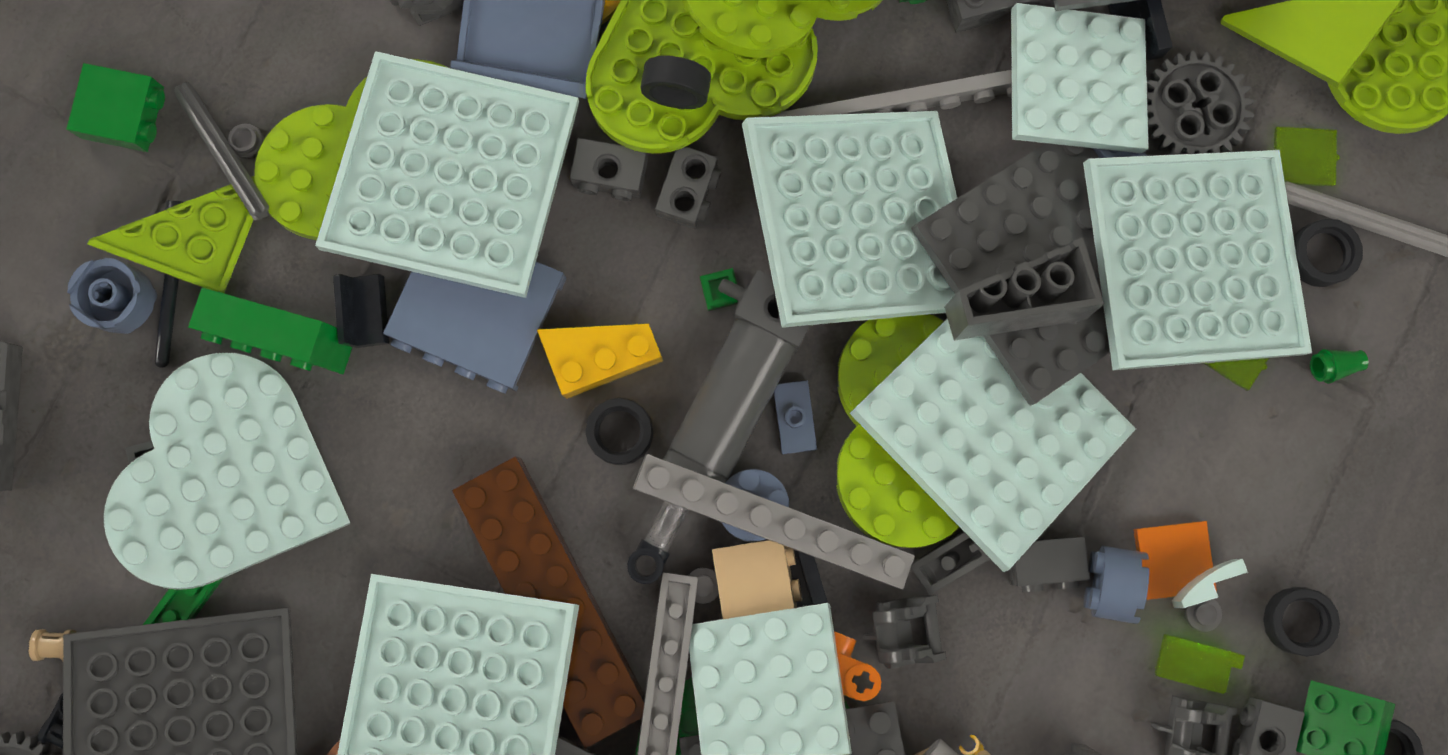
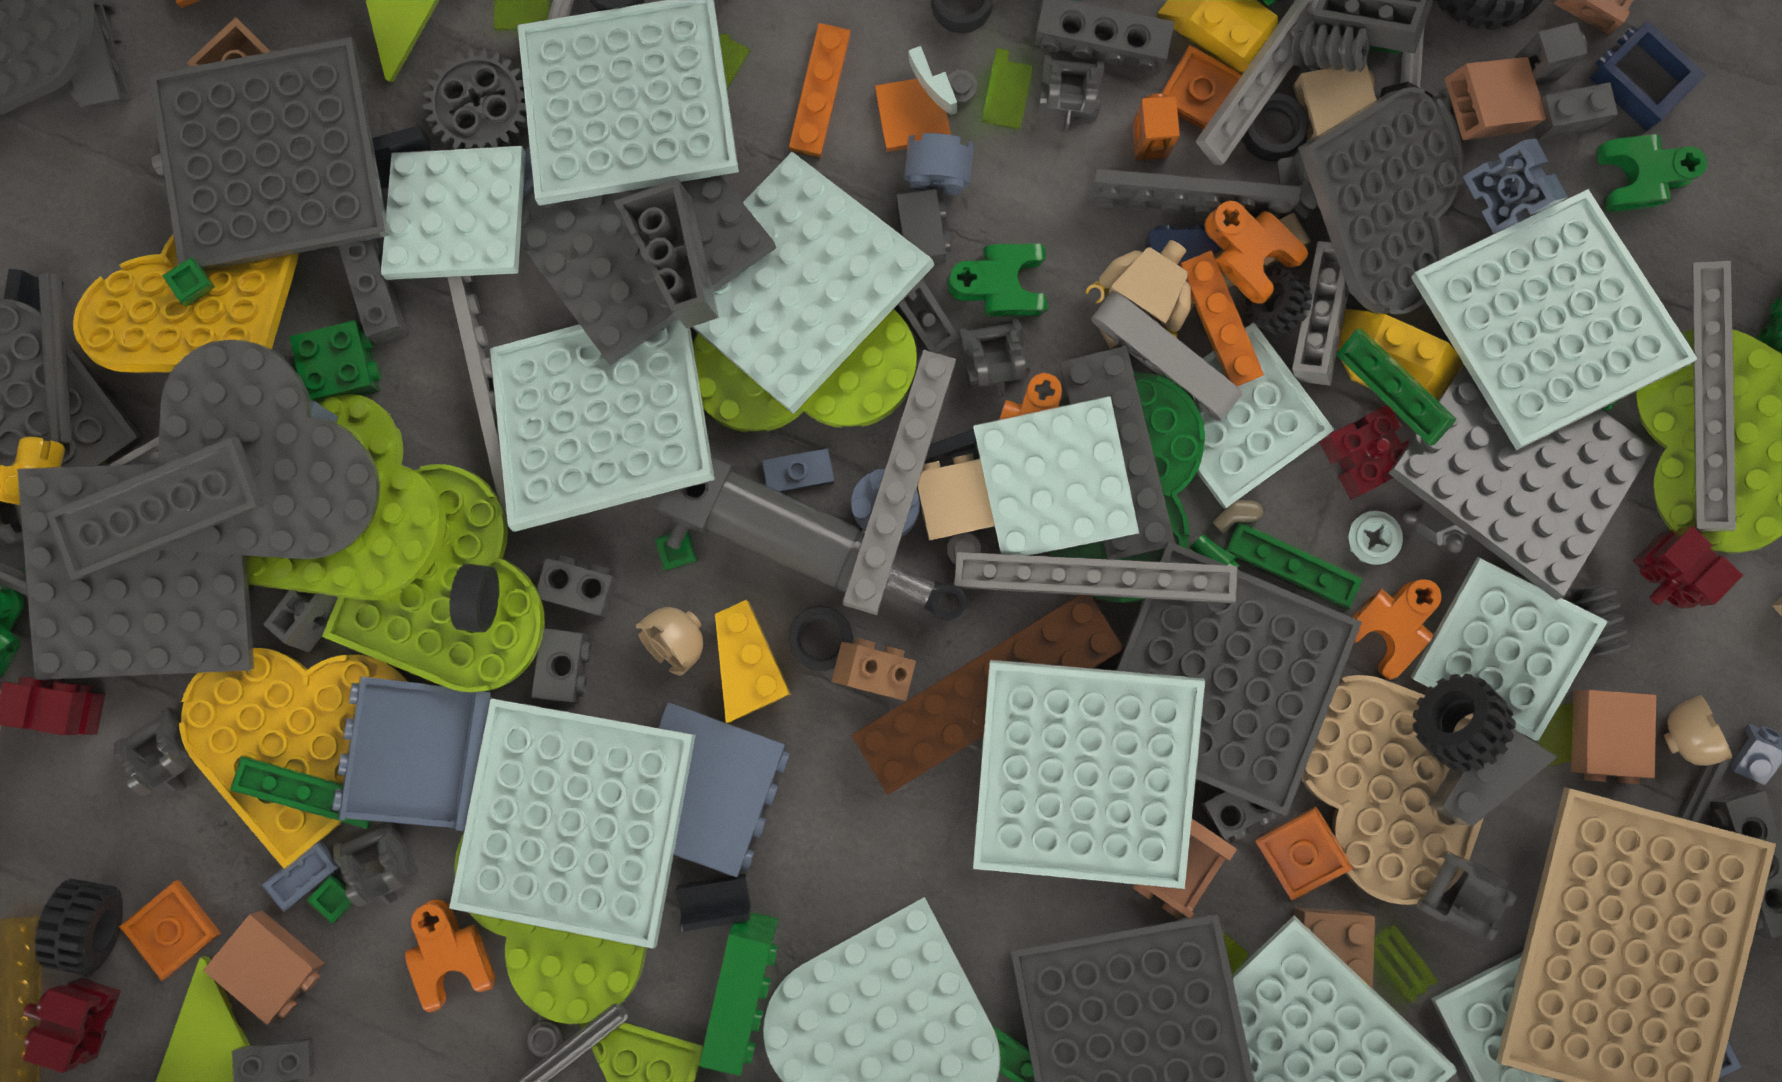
camera: 95 degrees left, 0 degrees up
(338, 47) = (444, 949): none -> orange piece
(581, 483) = (874, 670): none -> medium nougat brick
(629, 281) = (672, 637): none -> tan cylinder
(988, 639) = (997, 282): none -> green piece
(1202, 462) = (820, 90): none -> orange plate

